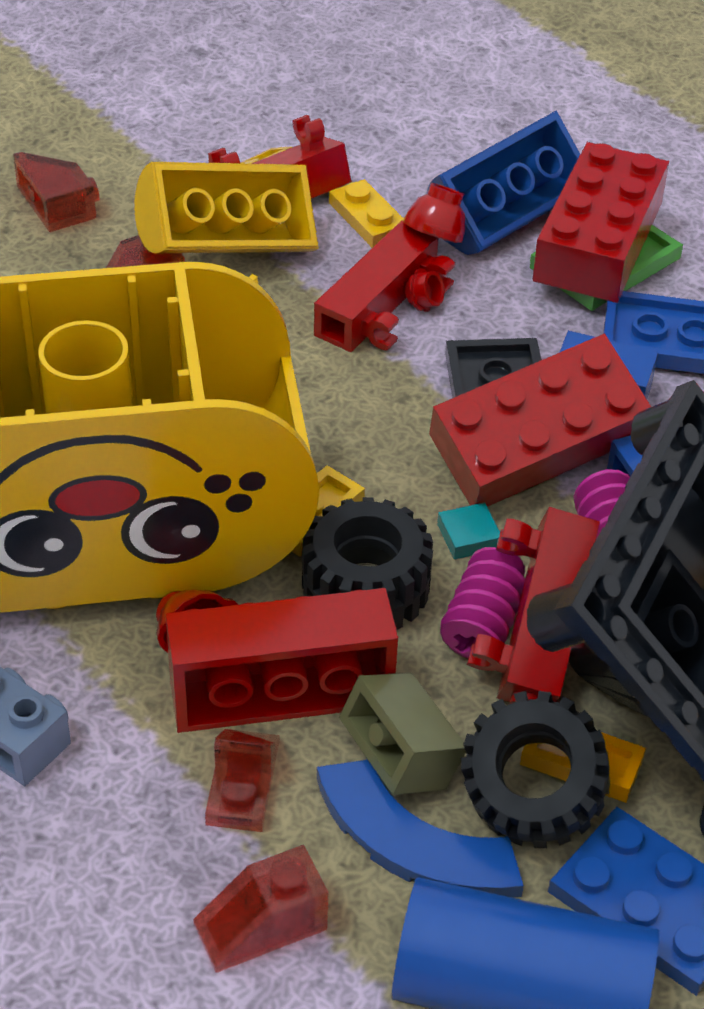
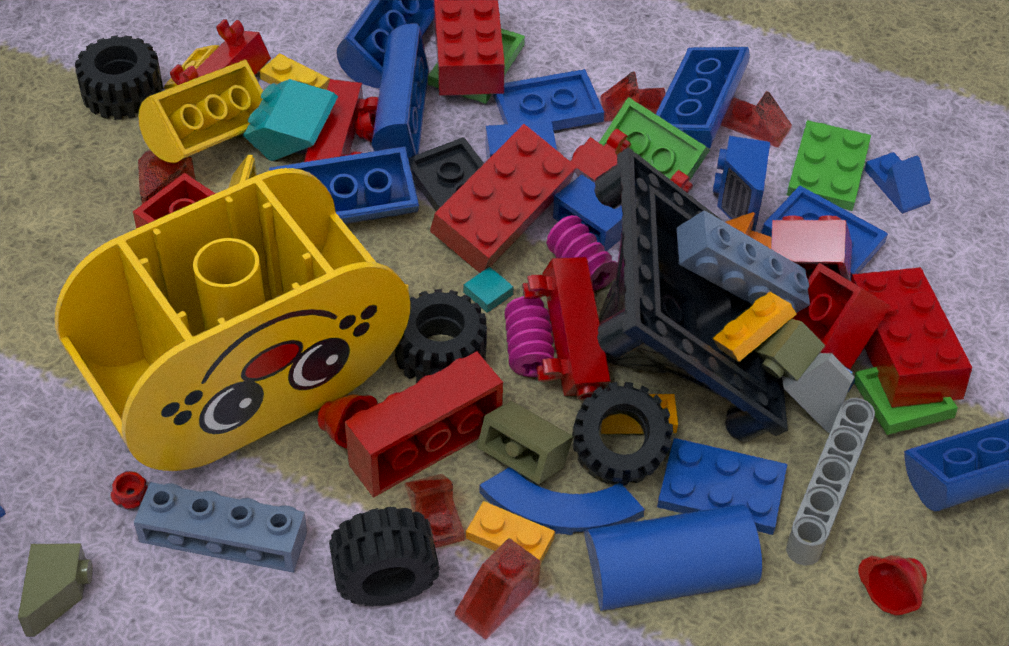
camera: 25 degrees left, 5 degrees up
(56, 190) = (57, 133): clear red slope -> none
(126, 804) = (383, 556): none -> black tyre
(154, 133) = (118, 76): none -> black tyre
(323, 247) = (288, 118): none -> teal slope
(335, 851) = (495, 525): none -> light orange plate
(363, 351) = (366, 184): none -> blue brick
(438, 214) = (355, 67): red piece -> none
(479, 265) = (402, 91): none -> blue brick

